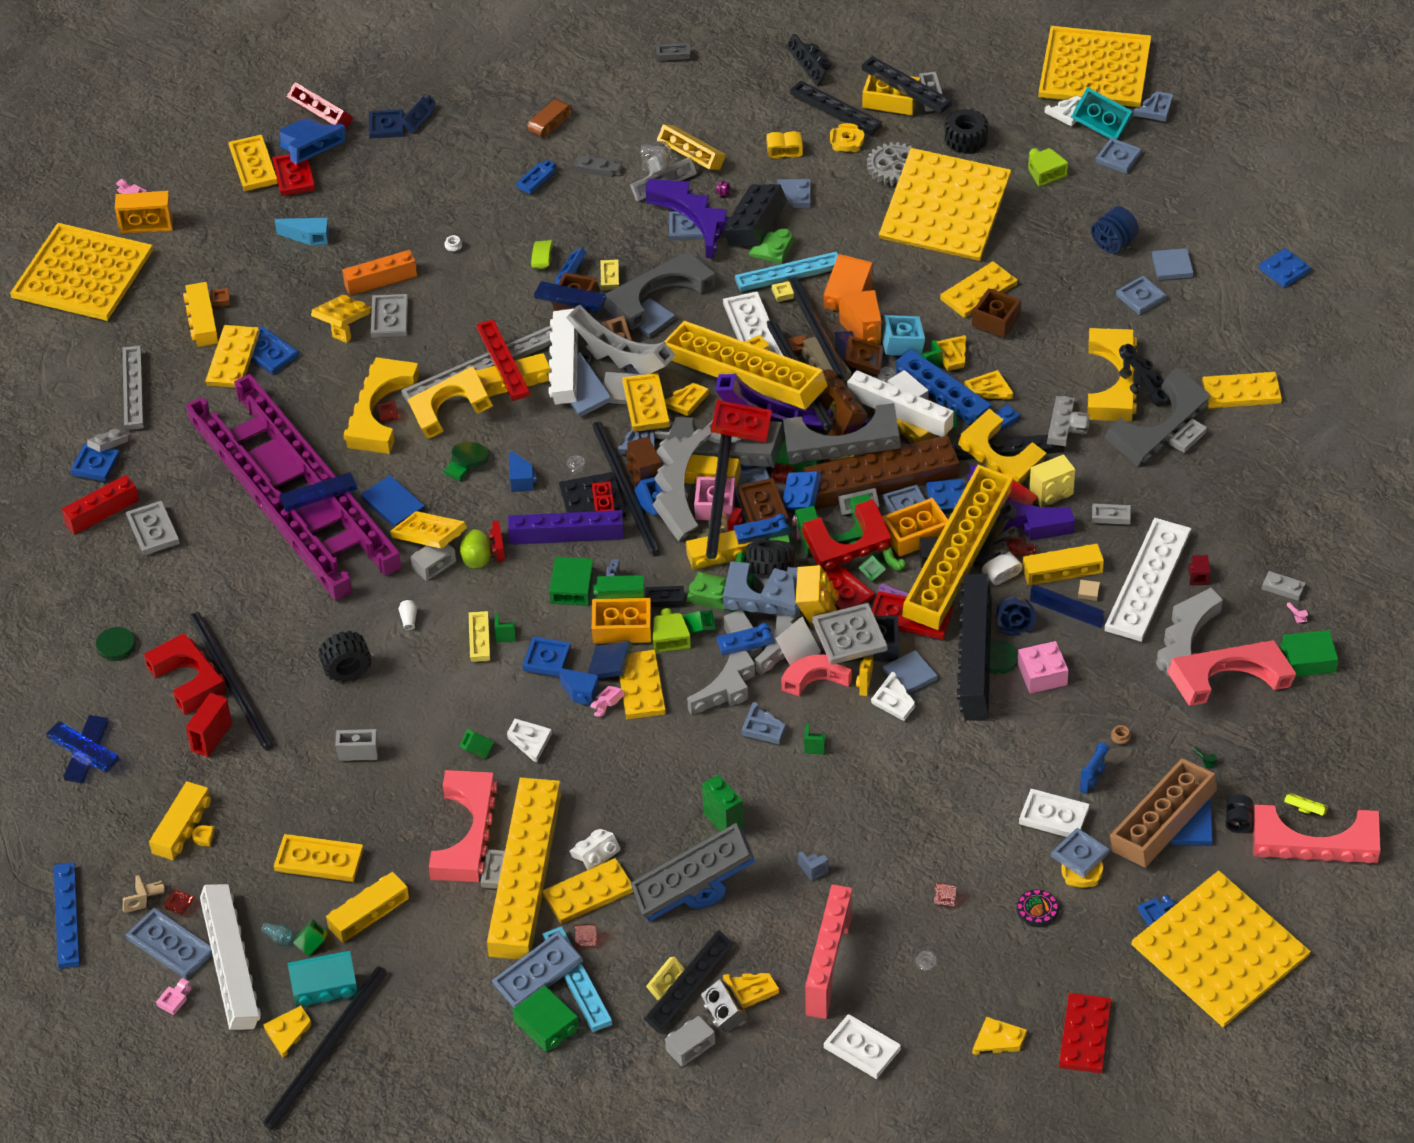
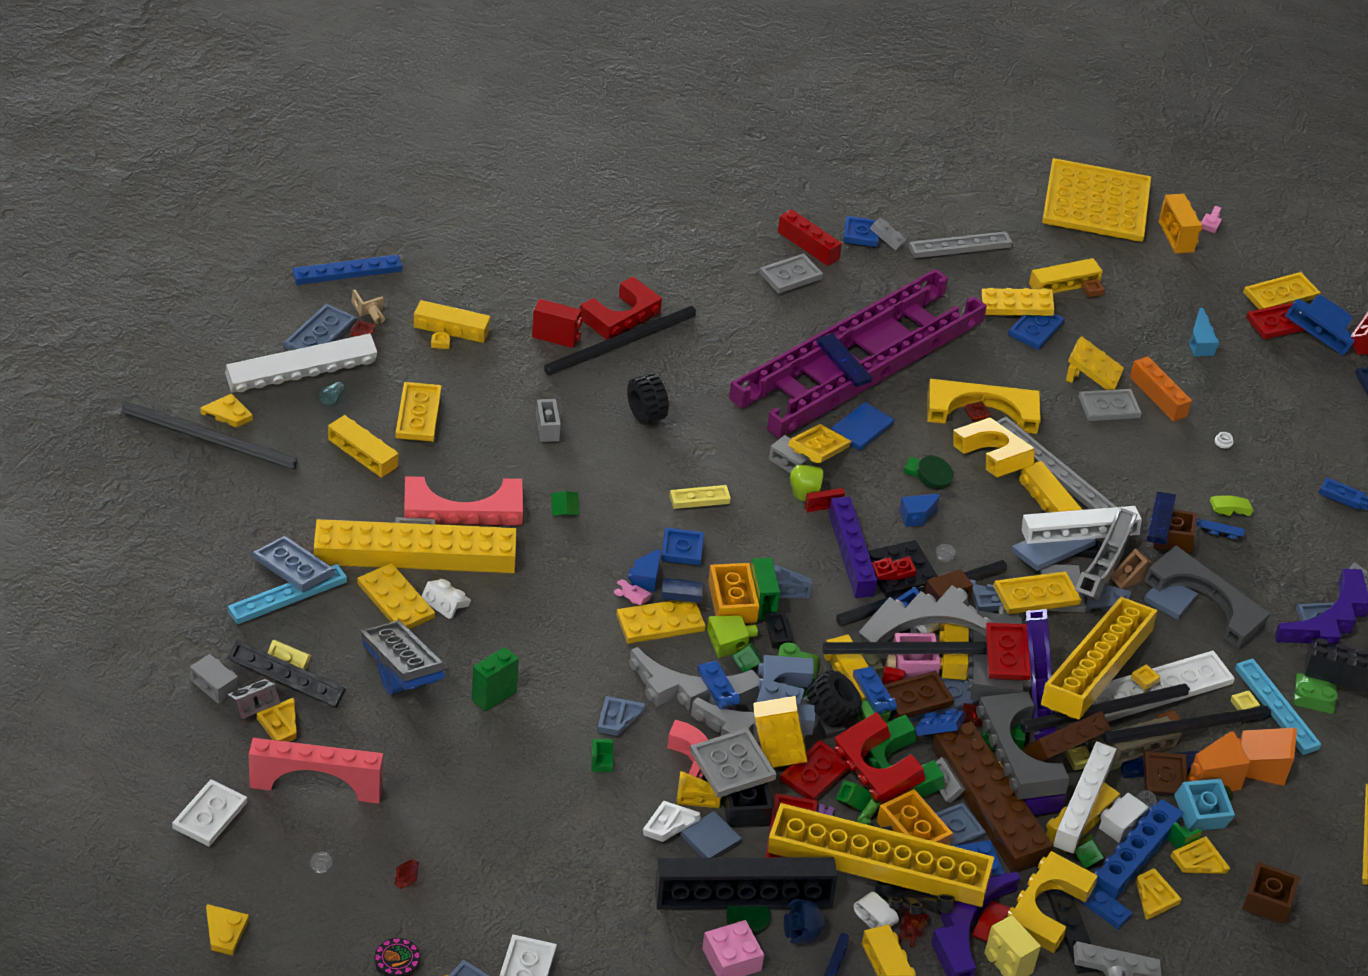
camera: 75 degrees right, 5 degrees down
(78, 767) = (529, 261): clear blue tile -> none
(82, 746) = (526, 255): clear blue tile -> none
(115, 643) = (652, 266): dark green tile -> none
(174, 998) = (258, 336): bright pink plate -> none
(310, 937) = (327, 412): green panel -> none
(322, 979) = (274, 420): teal slope -> none
(408, 614) = (718, 446): white cone -> none
(503, 360) = (1057, 476): red plate -> none
(504, 631) = (710, 512): green panel -> none
(529, 738) = (576, 541): white wing -> none
(545, 1019) = (238, 574): green brick -> none
(571, 581) = (787, 552): green brick -> none
(585, 935) = (338, 595): clear red plate -> none
(609, 274) = (1220, 559): light yellow plate -> none
(687, 399) = (1061, 631): yellow wing -> none
(797, 642) = (723, 722): white sticker -> none
(813, 865) = (438, 764): sand blue panel -> none
(968, 292) = (1318, 884): yellow plate -> none

